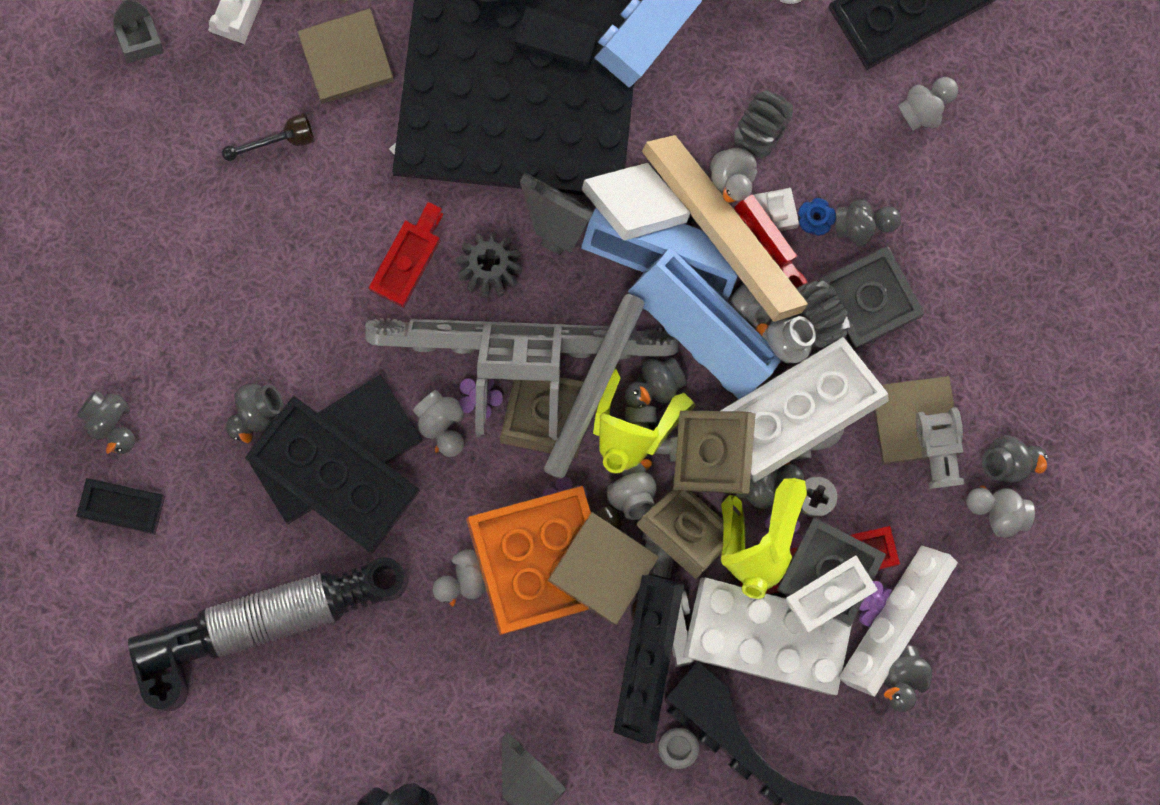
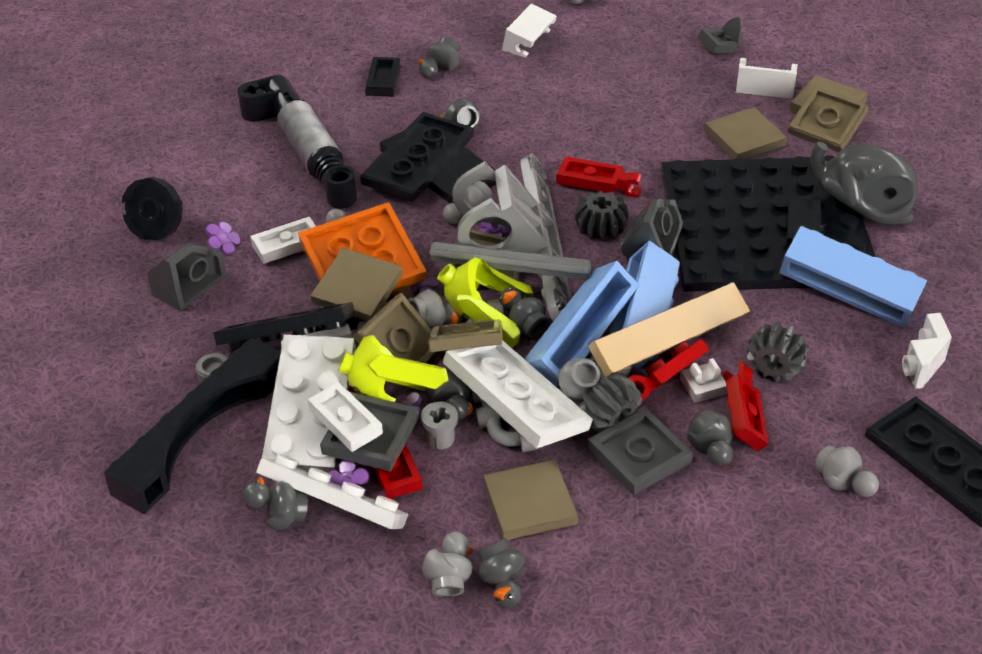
camera: 85 degrees right, 35 degrees down
(61, 288) = (527, 29): none -> white hinge
(296, 131) = (672, 113): hinge -> none
(449, 736) = (220, 236): none -> medium lavender plant
(468, 654) = (280, 240): none -> white plate
(635, 201) = (675, 272): white tile -> none
(734, 173) = (724, 338): light grey animal -> none
(814, 226) = (706, 401): blue plate -> none
(824, 177) = (746, 408): none -> red plate
(941, 446) = (505, 504): light grey connector -> none

